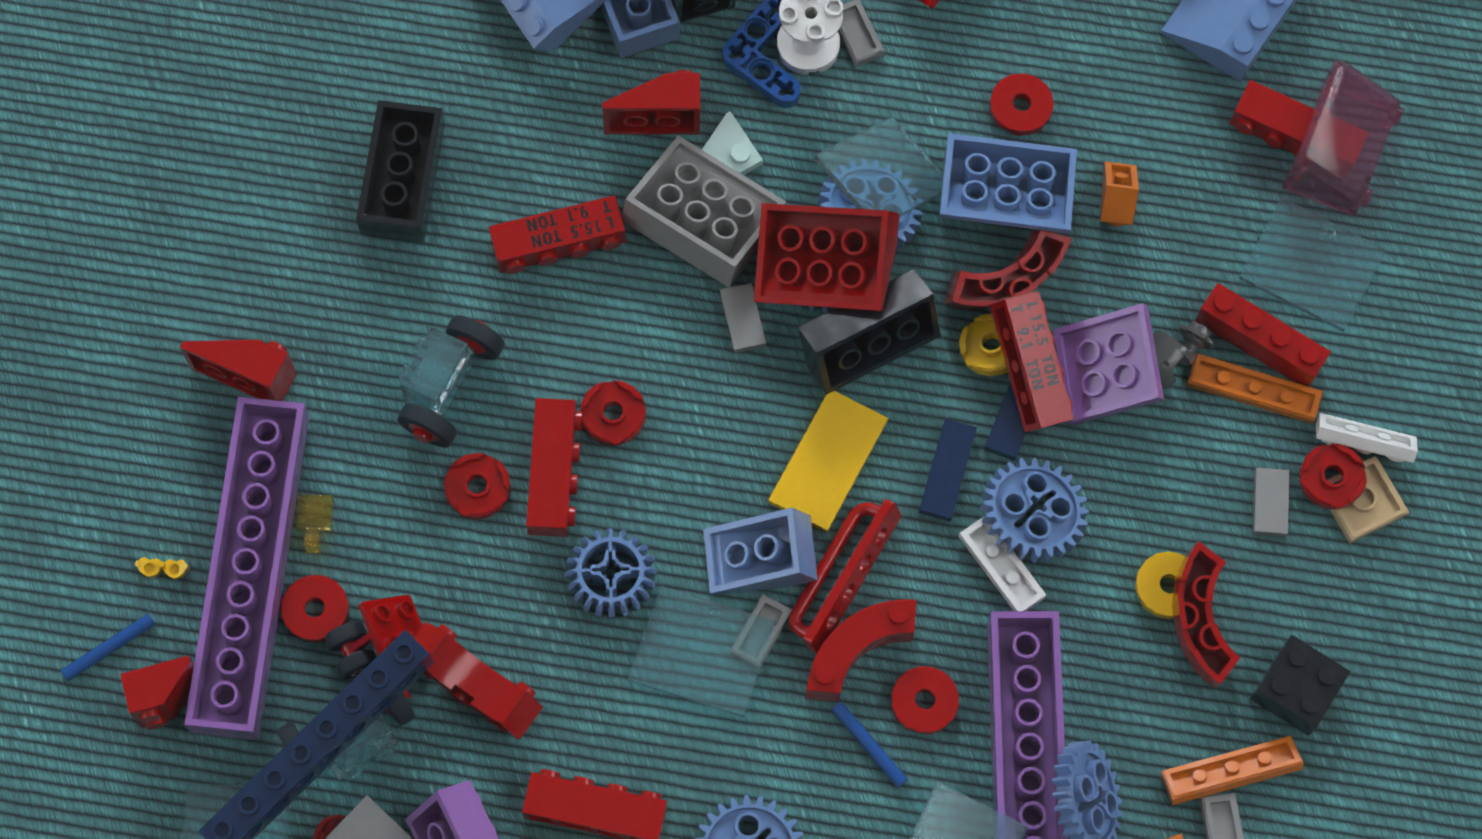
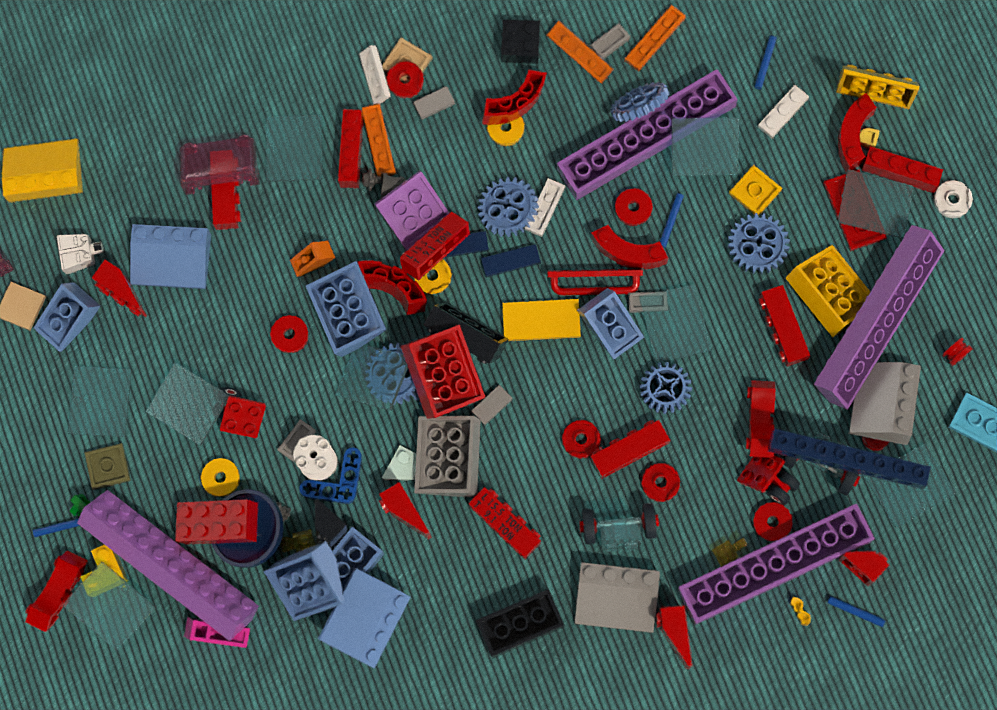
camera: 110 degrees left, 5 degrees up
(355, 326) = (617, 597): none -> light grey slope

